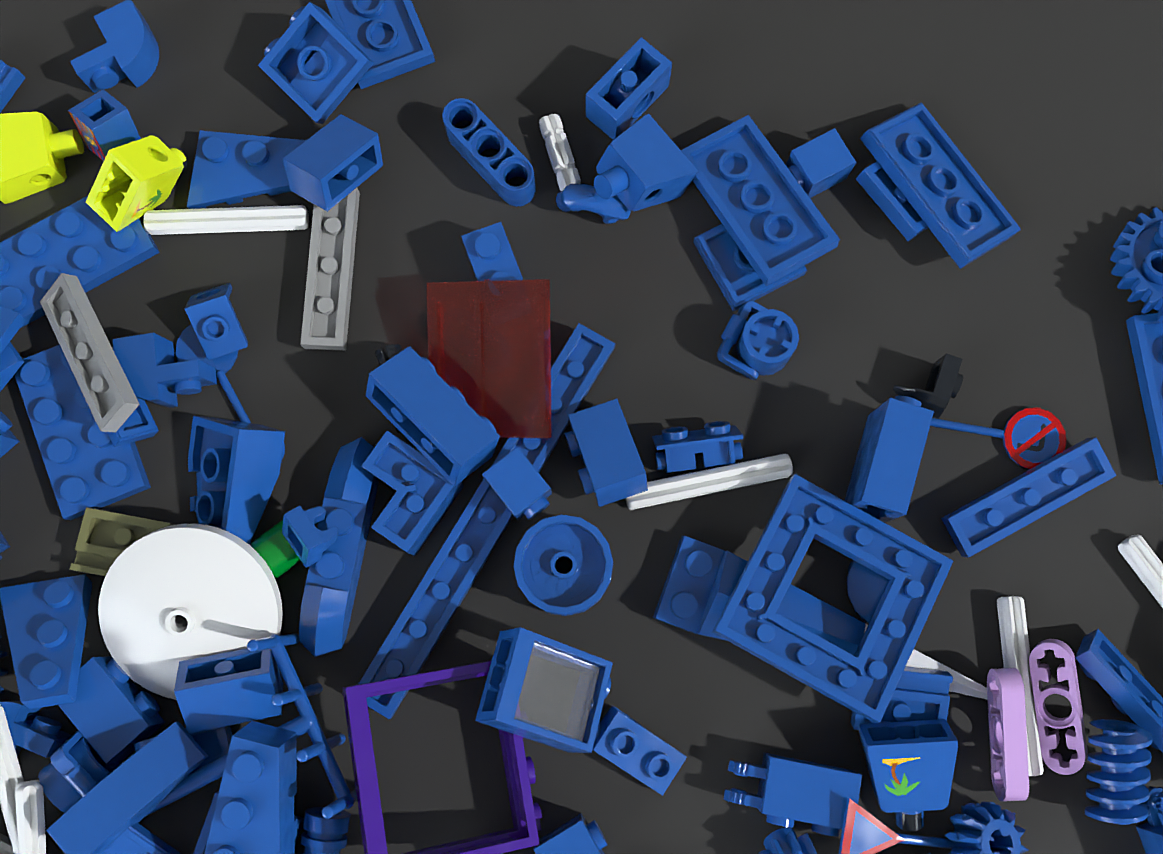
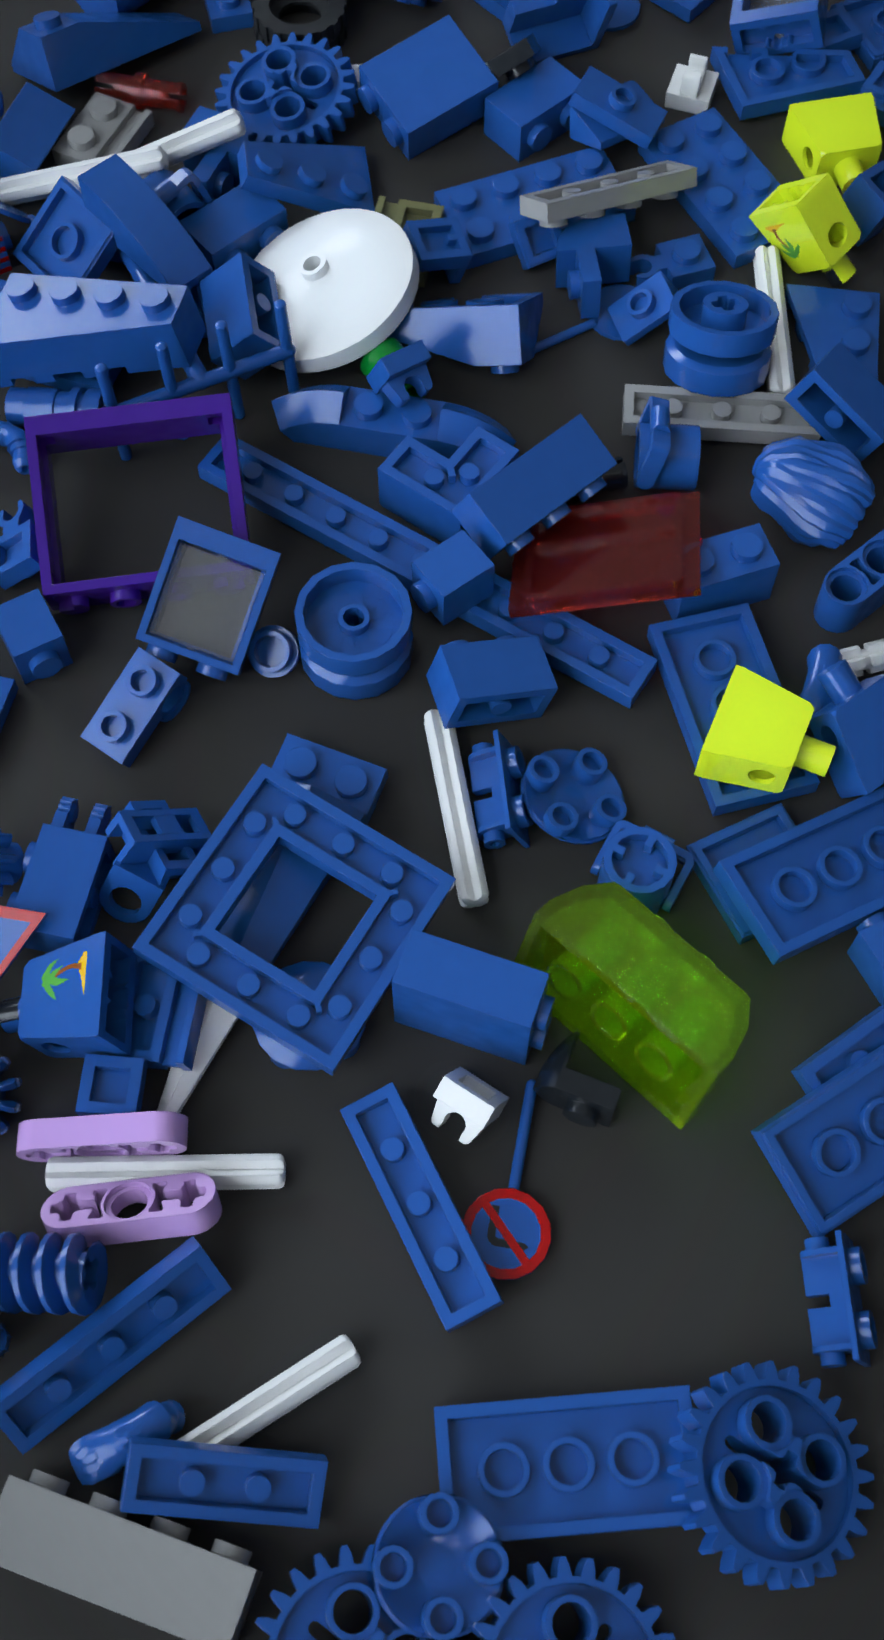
camera: 90 degrees right, 15 degrees down
(142, 508) = (440, 246): none -> blue bracket
(154, 297) = (680, 260): none -> blue plate
(261, 260) = (720, 338): none -> blue wheel
(376, 312) = (665, 452): none -> blue piece
(413, 196) = (812, 490): none -> blue hair
(577, 632) = (274, 651): none -> blue plate
(618, 268) = (696, 664): none -> blue plate
(656, 245) = (760, 736): none -> neon yellow torso
(698, 390) = (573, 795): none -> blue dish
(789, 719) = (156, 849): none -> blue piece
(875, 337) = (638, 995): none -> clear neon green windscreen
(950, 463) = (471, 1099): none -> white tile
(974, 730) = (111, 1085): none -> blue tile
(1079, 219) = (844, 1325): none -> blue hinge

